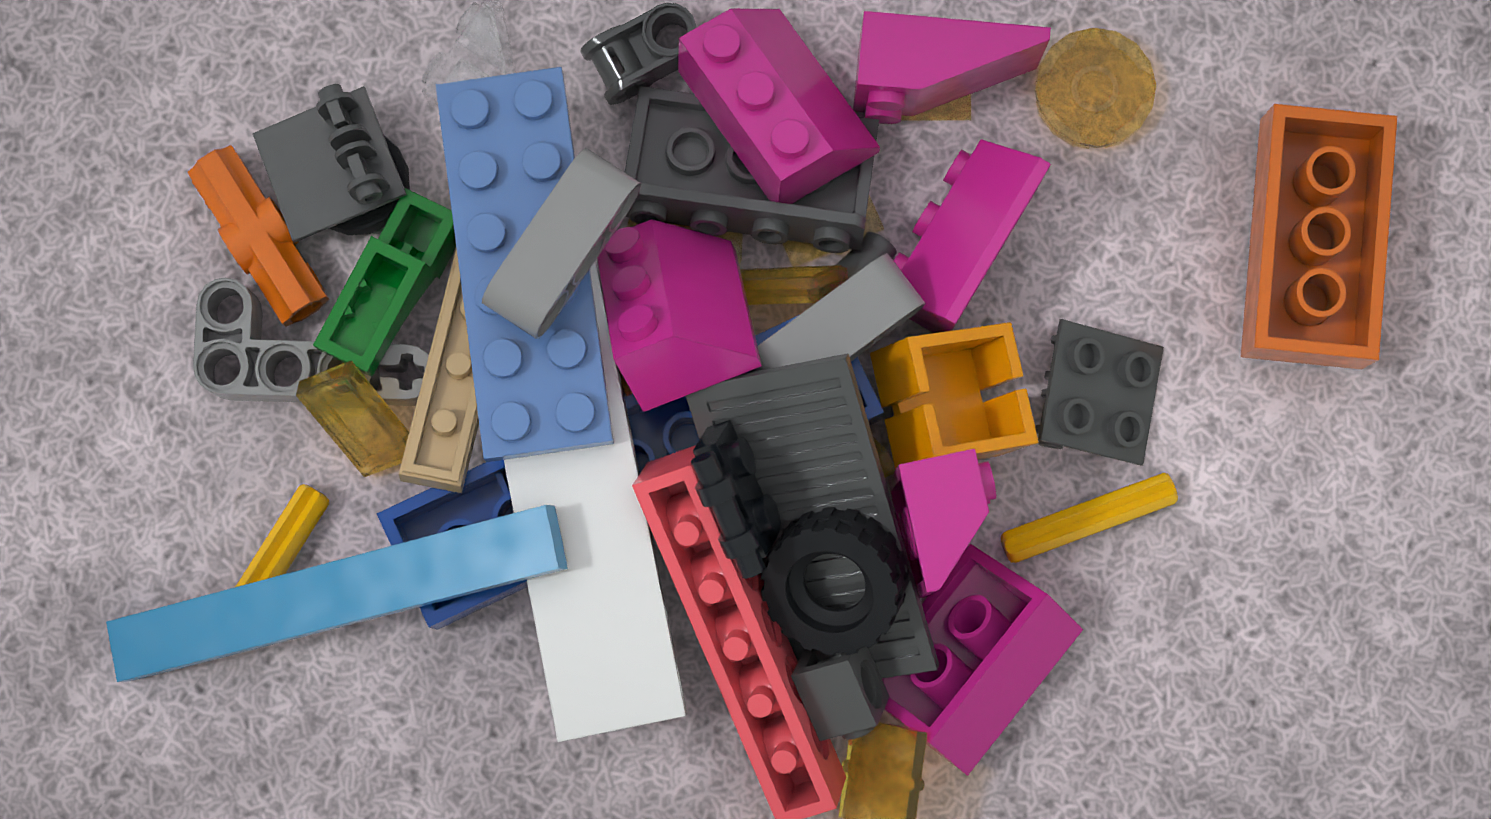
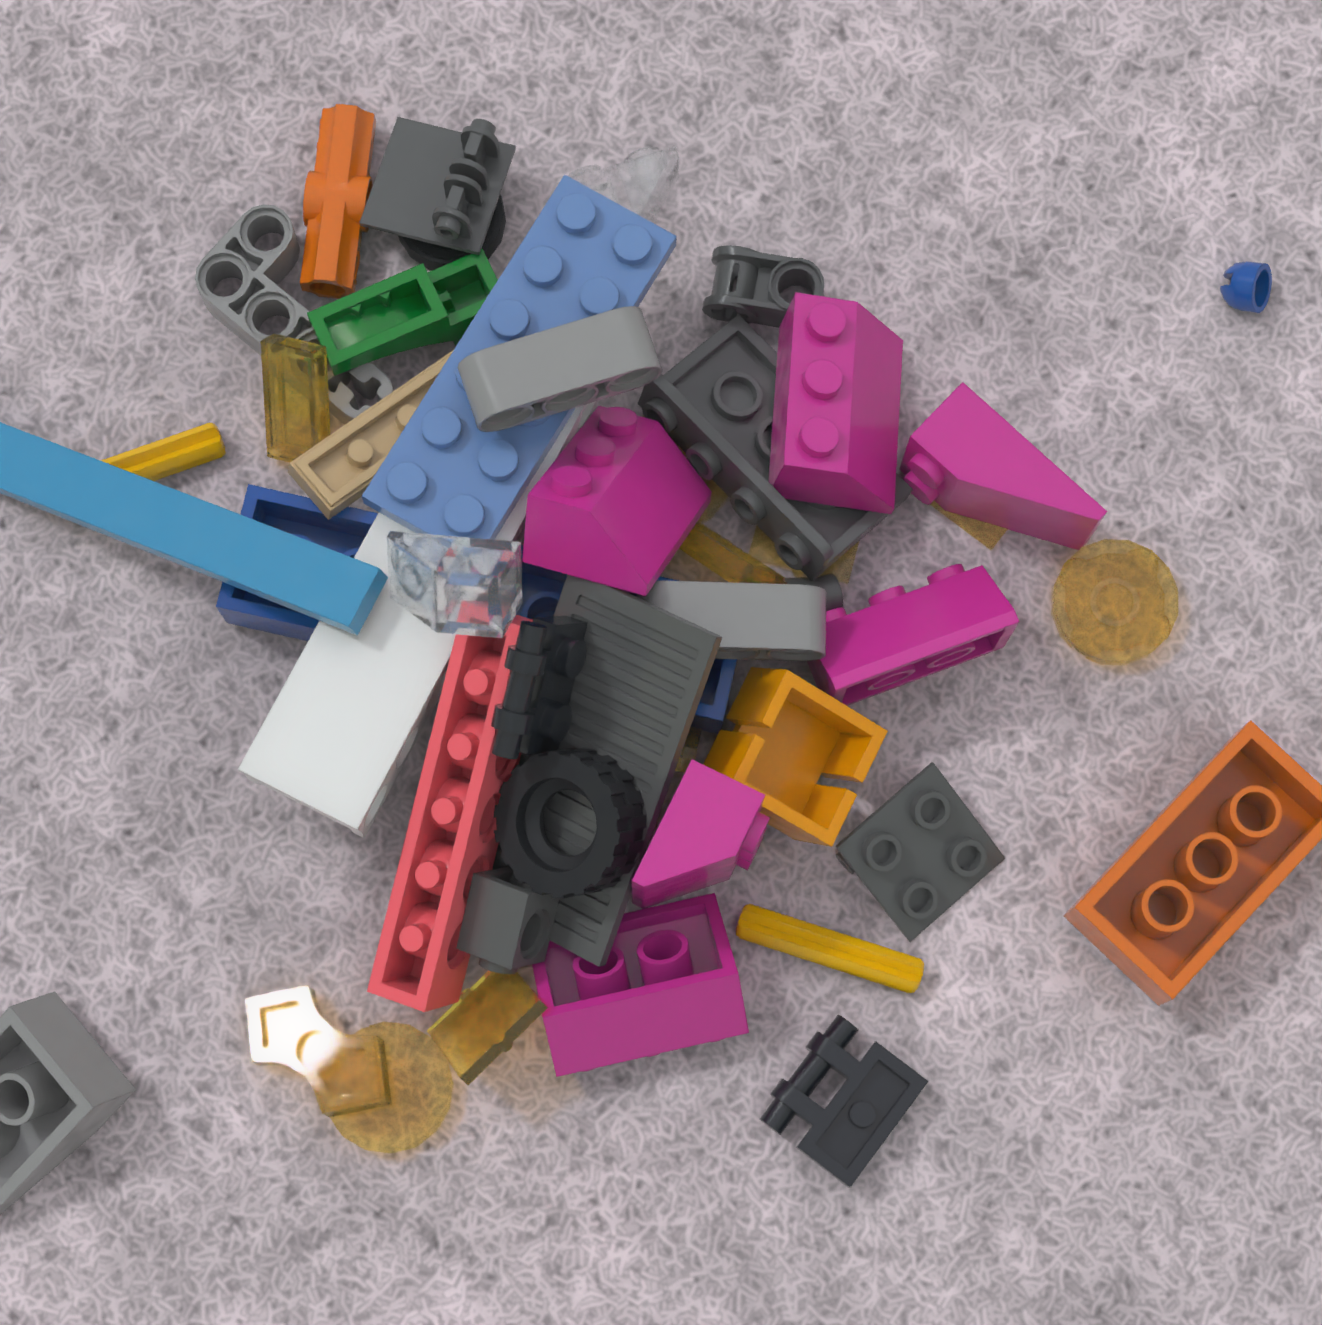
camera: 35 degrees right, 5 degrees down
(614, 470) = (456, 581): none -> clear slope
(1208, 623) = (861, 1111): none -> black plate

